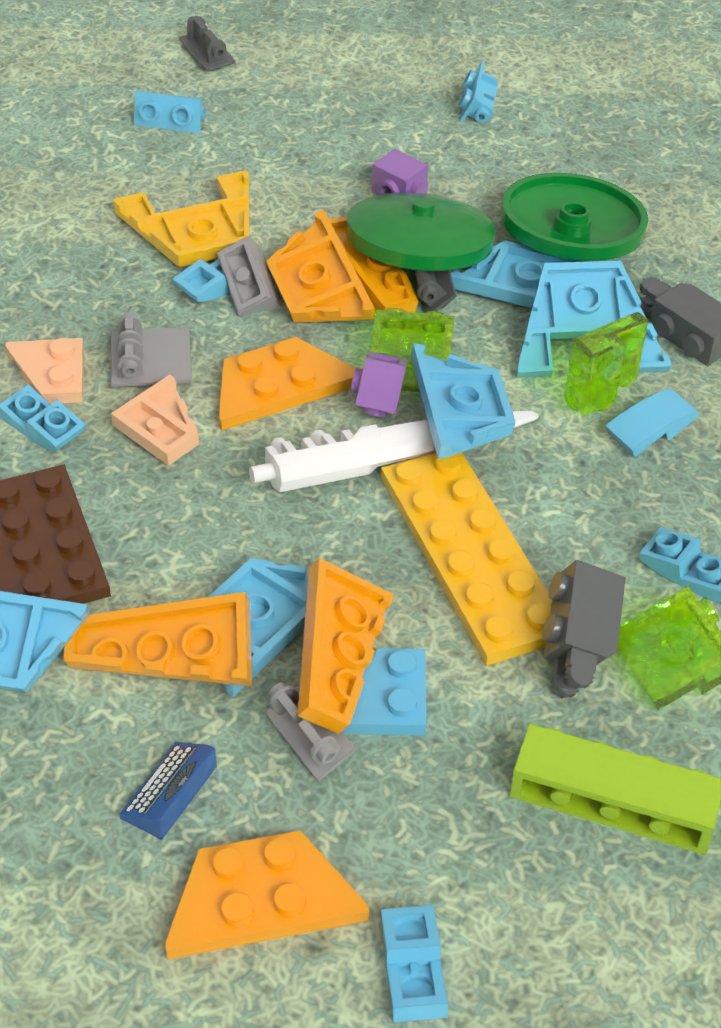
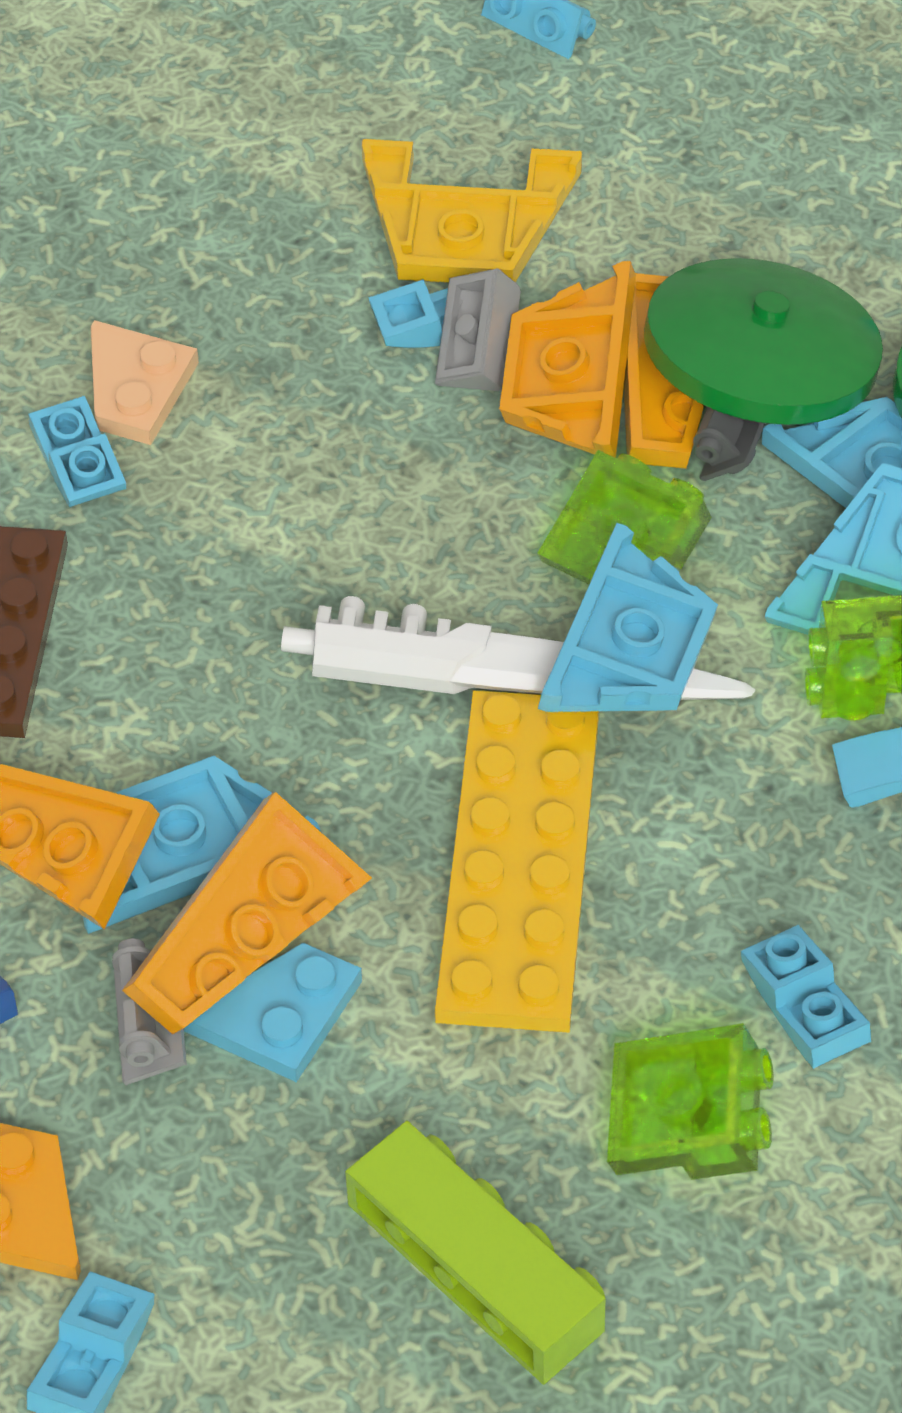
camera: 30 degrees right, 5 degrees up
(148, 354) = (273, 406): light grey hinge -> none
(158, 422) = (224, 511): light nougat wing -> none
(277, 380) = (423, 506): light orange wing -> none
(379, 383) = (543, 564): medium lavender brick -> none
(399, 173) = (801, 234): medium lavender brick -> none
(581, 624) = (576, 1018): dark grey hinge -> none

